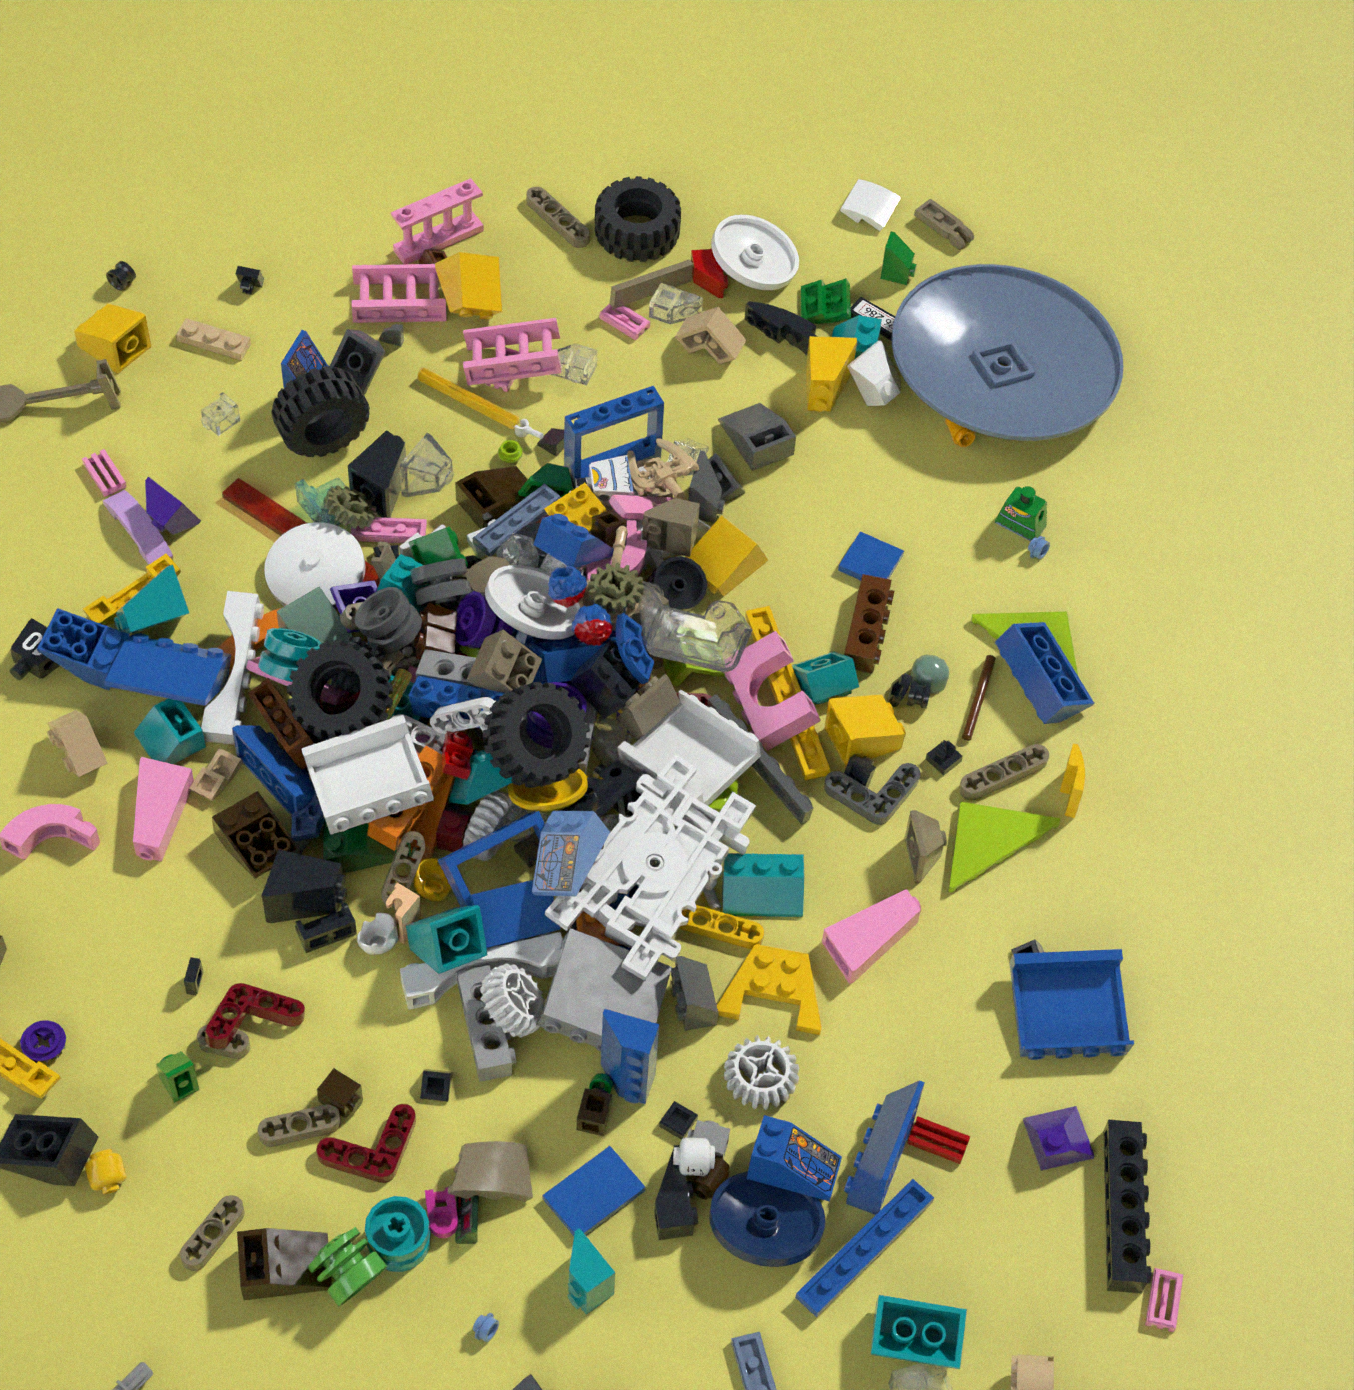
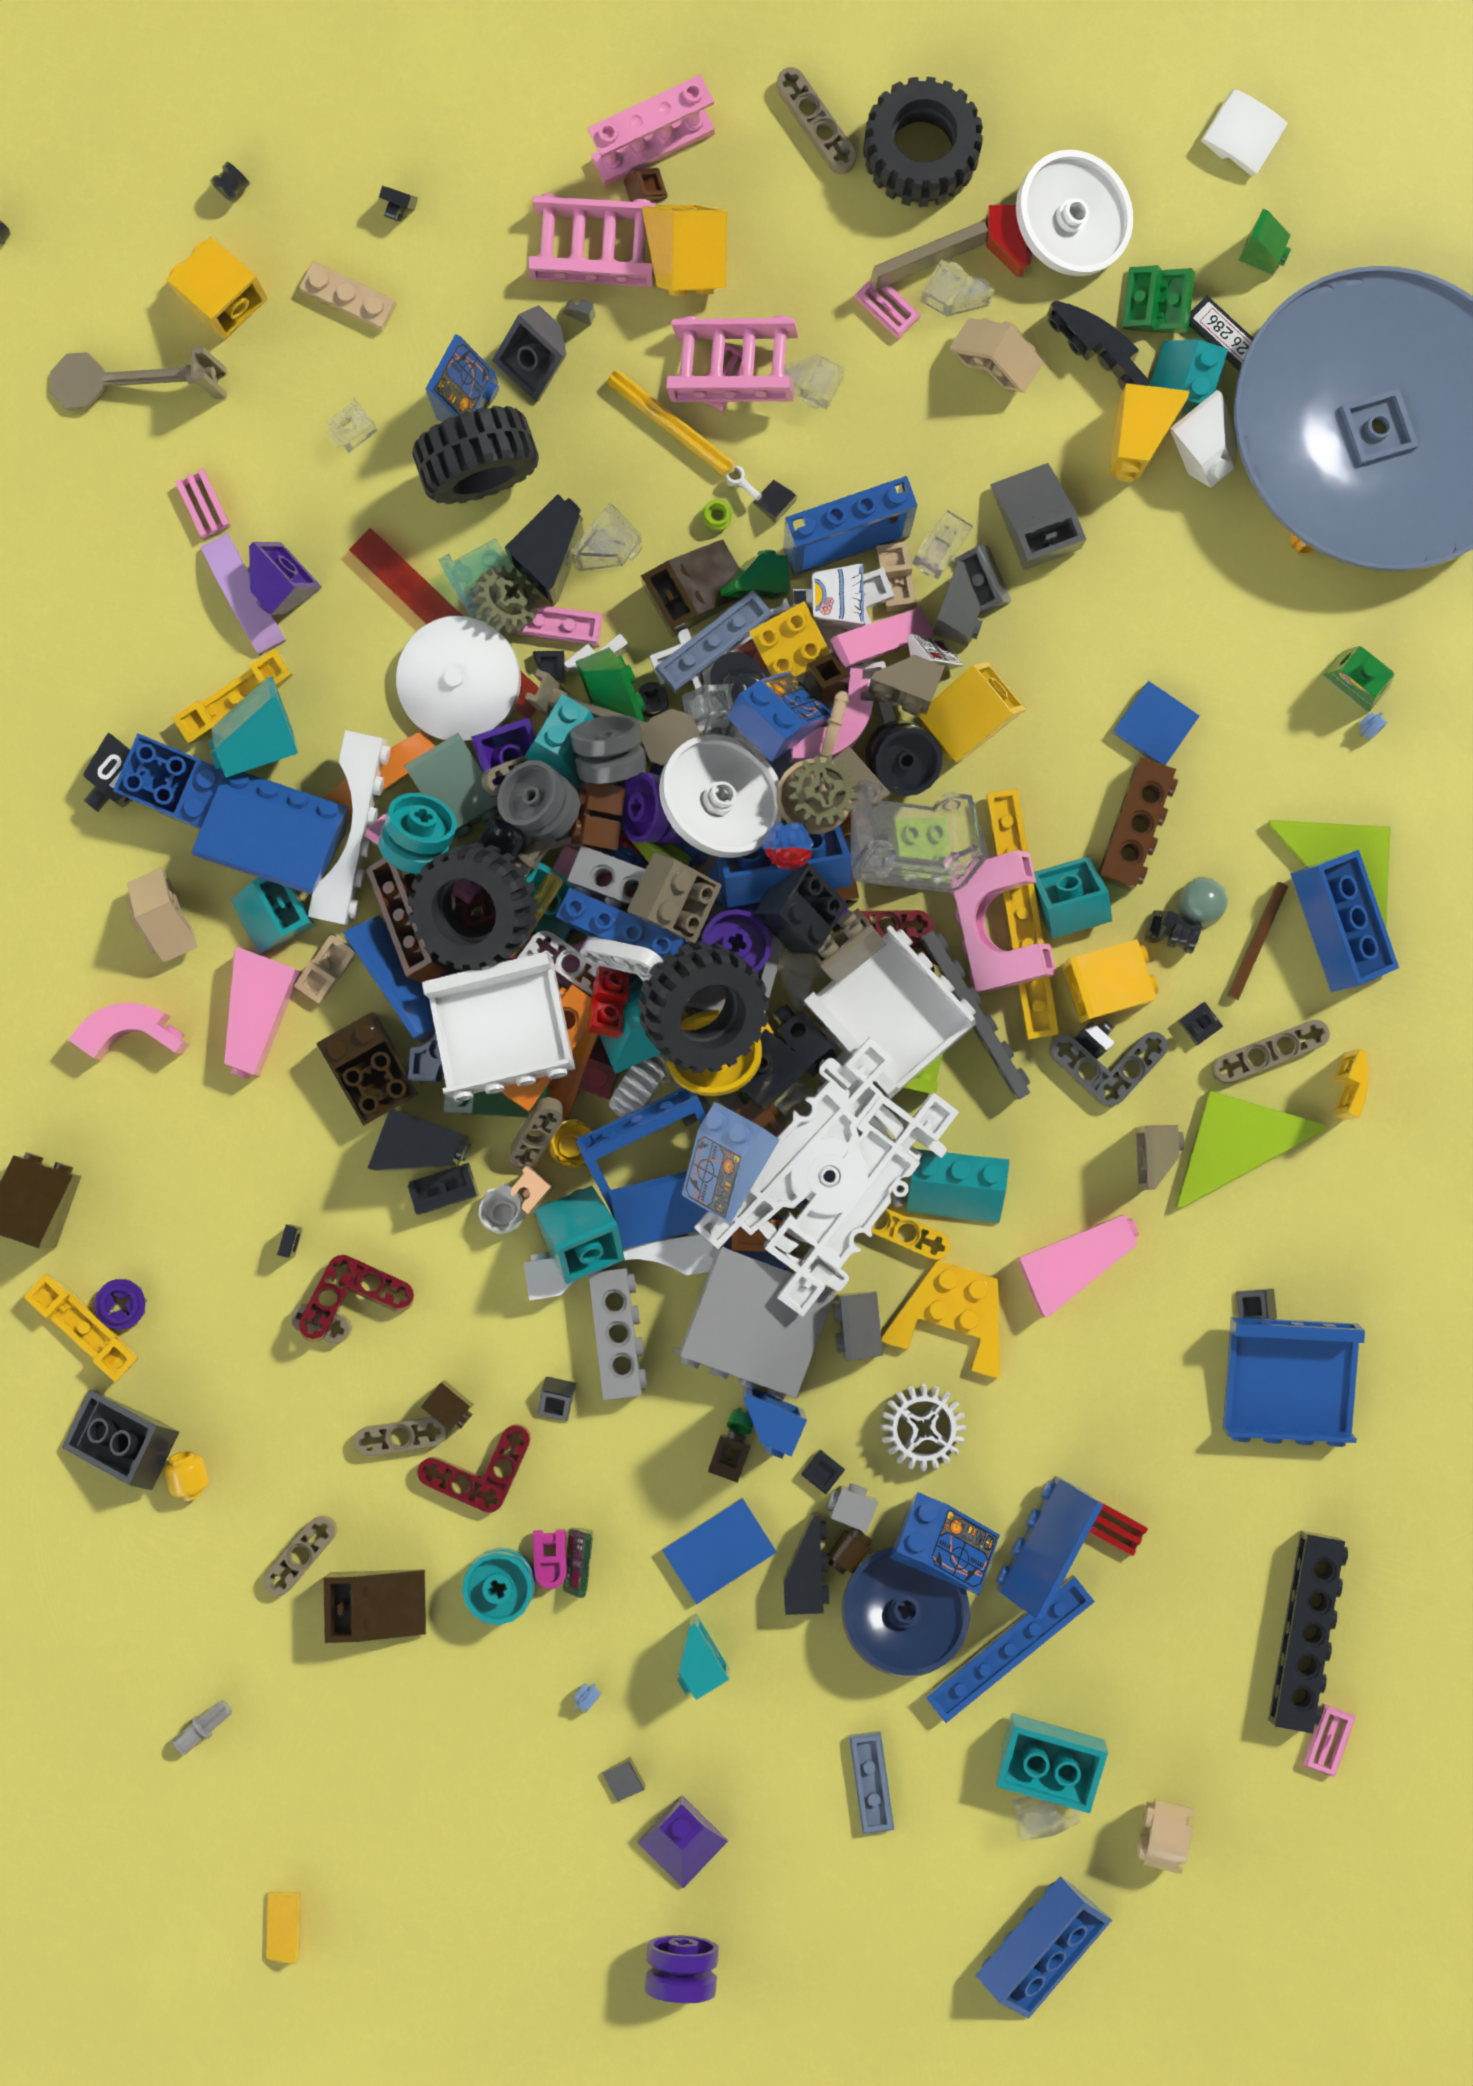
camera: 10 degrees right, 30 degrees up
(178, 1075) = (265, 1367): green slope -> none
(347, 1266) = (441, 1628): bright green wheel -> none
(492, 1171) = (608, 1523): dark tan slope -> none
(512, 1000) = (647, 1299): white gear -> none
(566, 586) = (762, 784): blue piece -> none
(632, 648) = (834, 877): blue tile -> none
(663, 473) = (909, 596): tan bar -> none
(694, 1156) = (833, 1540): white head -> none
(944, 223) = (1339, 174): dark tan hinge -> none
(1058, 1138) = (1248, 1537): dark purple slope -> none

